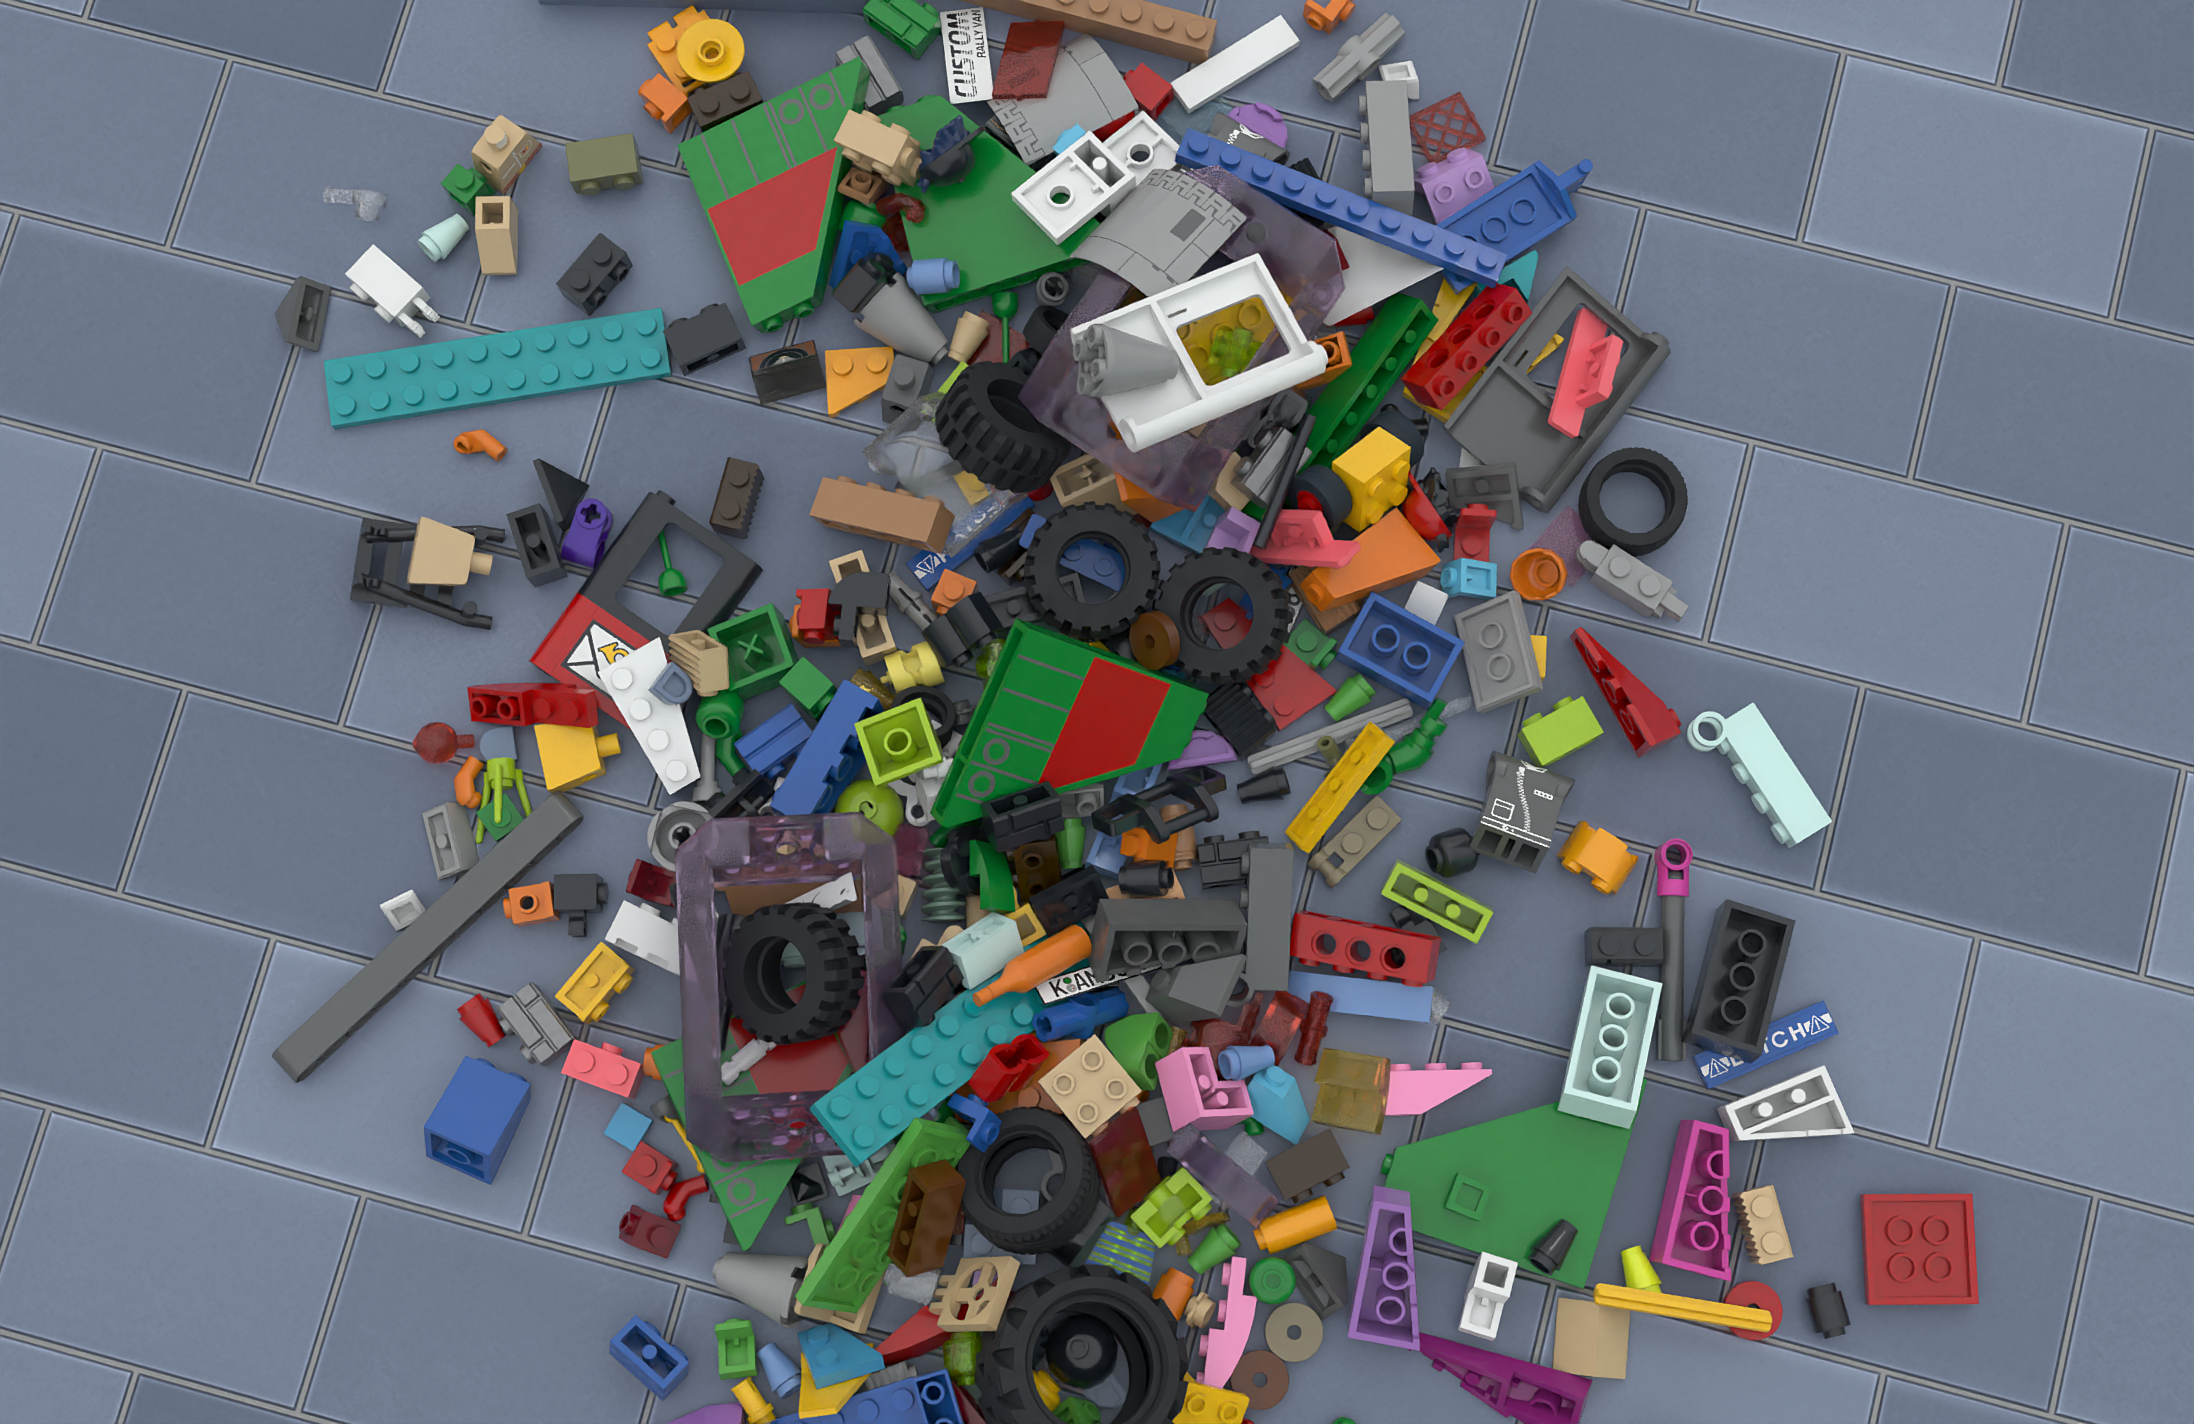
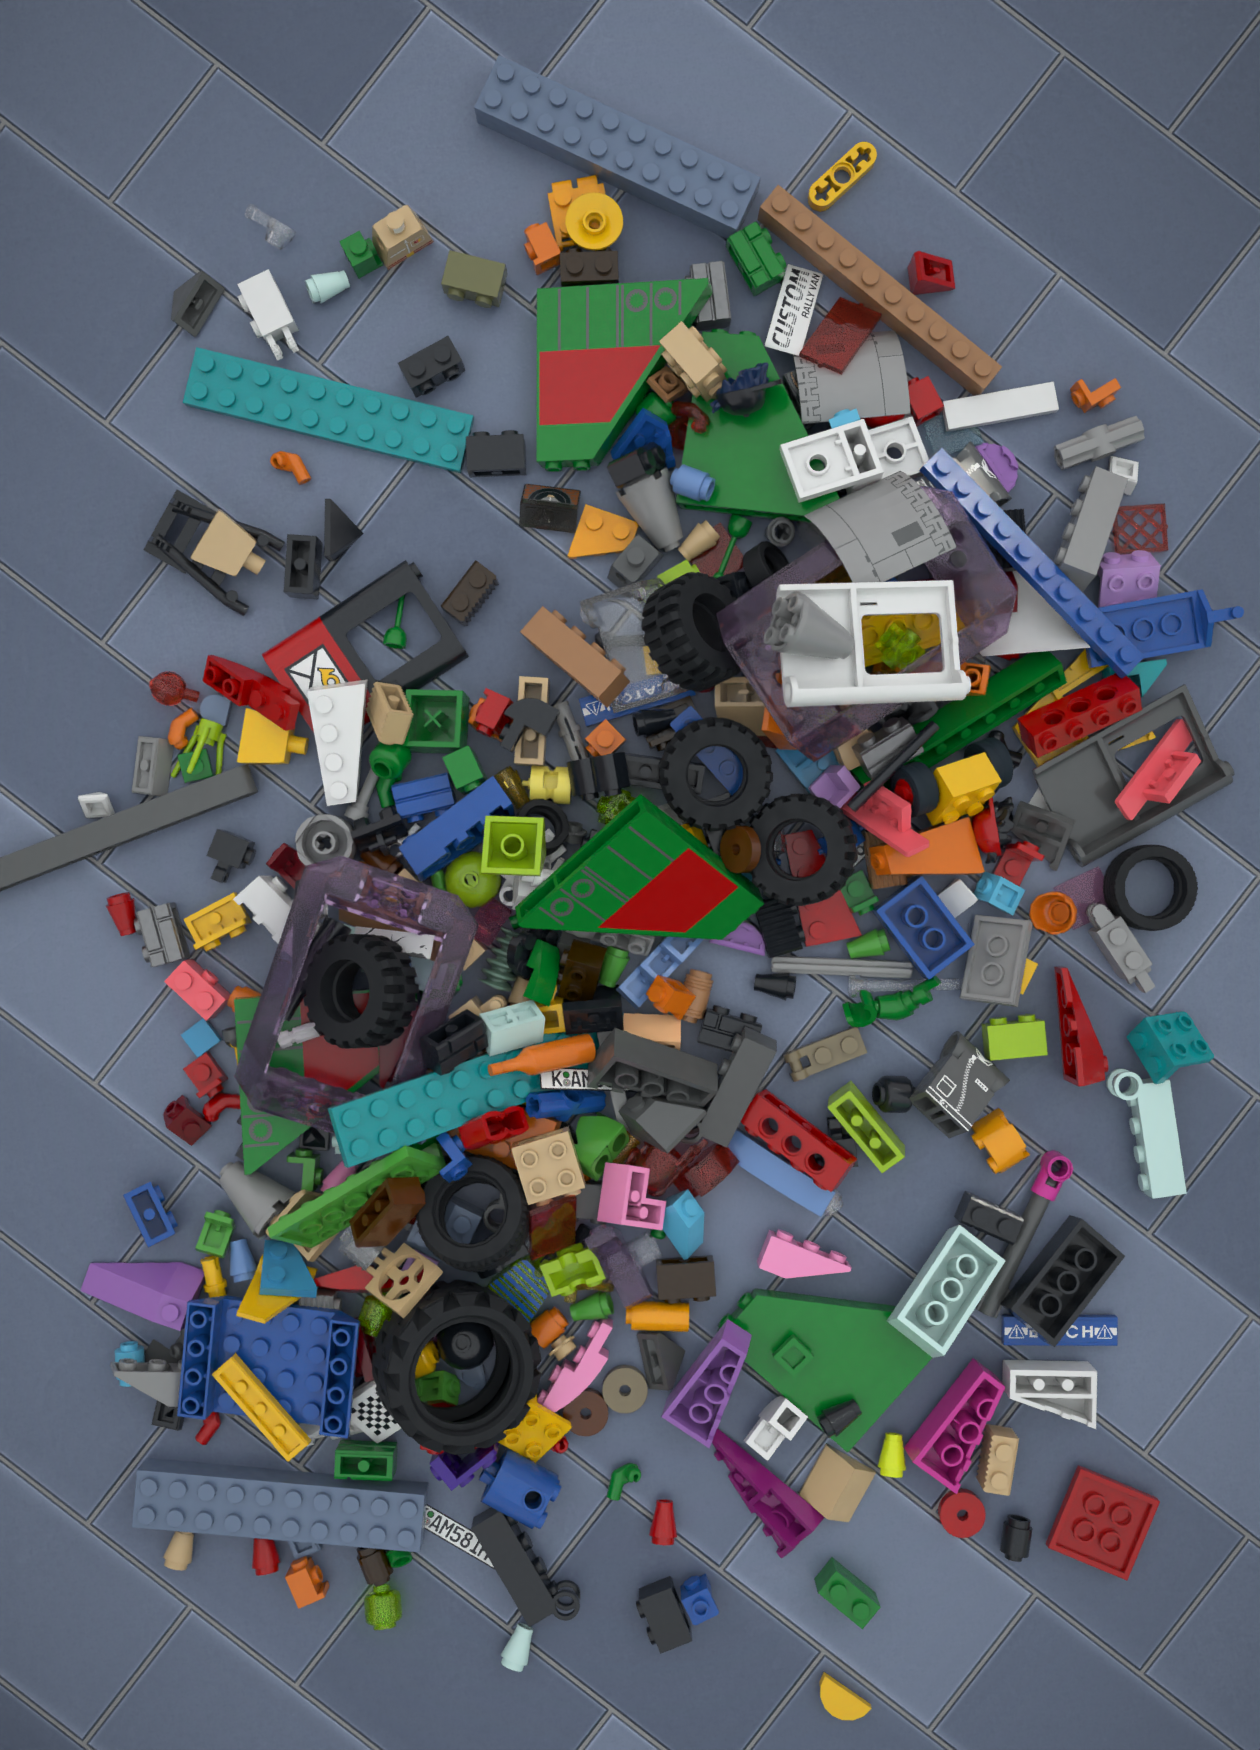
camera: 20 degrees right, 10 degrees up
(476, 1119) = (91, 985): blue slope -> none
(497, 234) = (368, 302): tan slope -> none
(542, 909) = (201, 845): orange brick -> none
(587, 539) = (343, 576): dark purple piece -> none
(672, 685) = (360, 725): sand blue tile -> none
(1023, 817) = (583, 943): black brick -> none
(1139, 811) = (675, 975): black bar -> none
(1145, 879) = (656, 1023): black brick -> none
(1243, 1061) = (670, 1190): medium blue cone -> none
(1272, 1280) = (624, 1349): green head -> none
(1313, 1028) = (734, 1181): clear red pin -> none
(1329, 751) = (837, 985): olive arm -> none
(1339, 787) = (832, 1012): yellow tile -> none
(1352, 1091) = (742, 1238): clear yellow slope -> none
(1682, 1307) = (912, 1496): yellow axle -> none
(1730, 663) = (1168, 1043): none -> teal bracket

